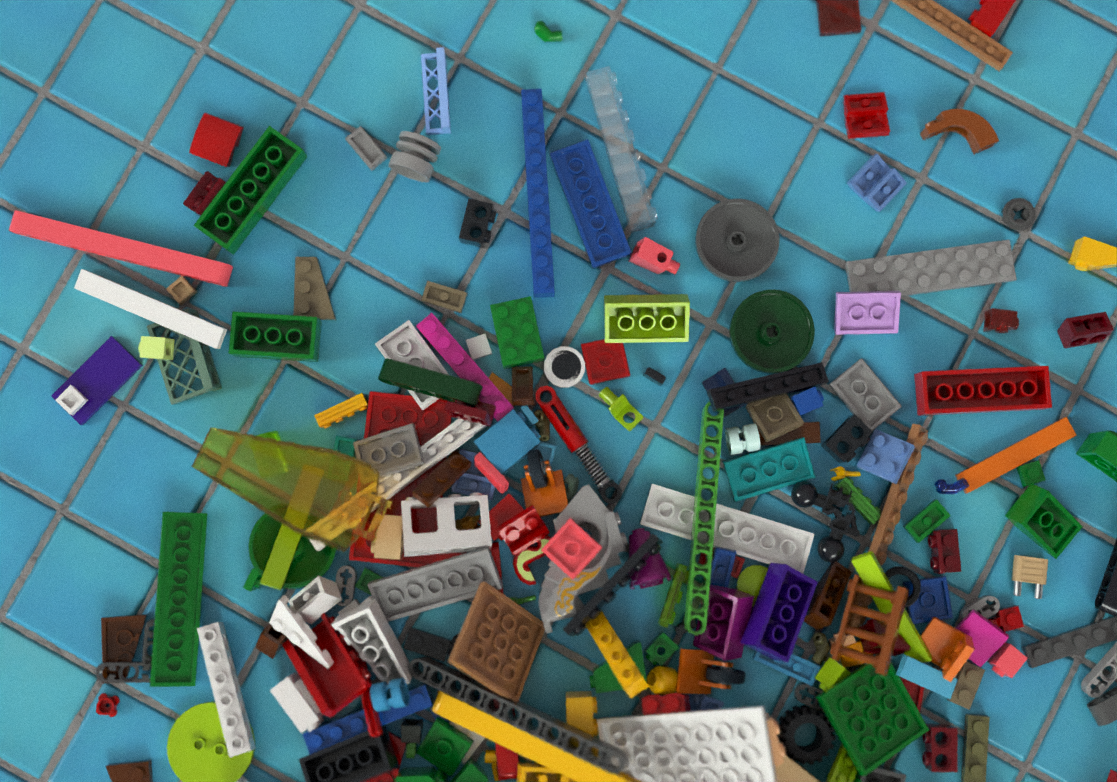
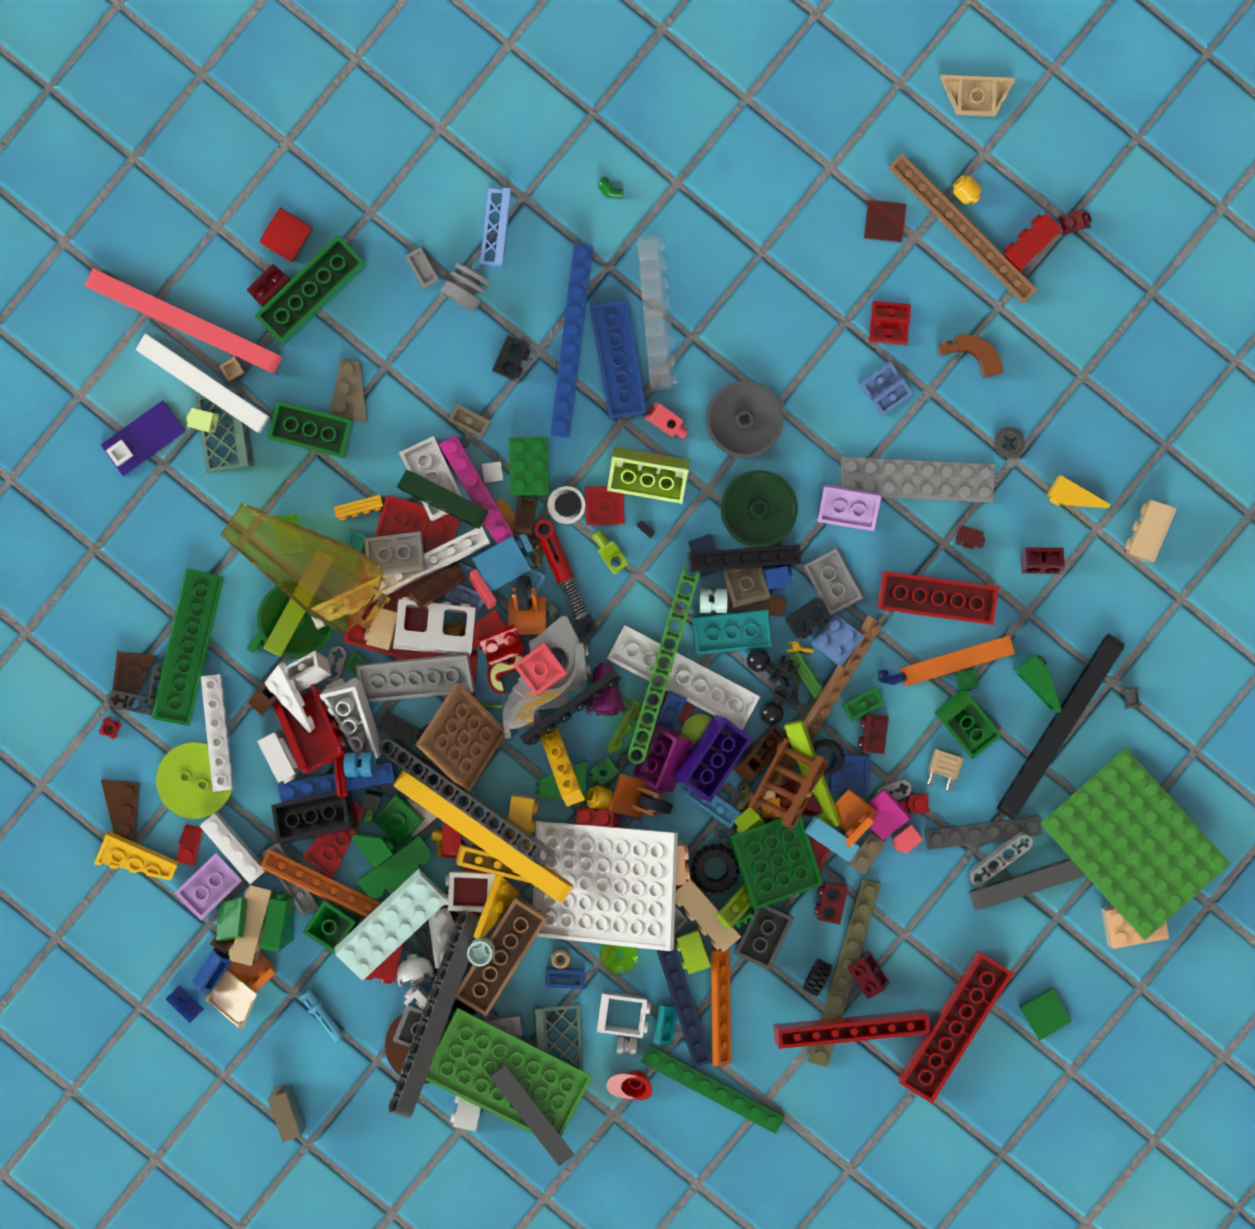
camera: 10 degrees right, 5 degrees up
(481, 413) = (482, 535): dark red bracket -> none

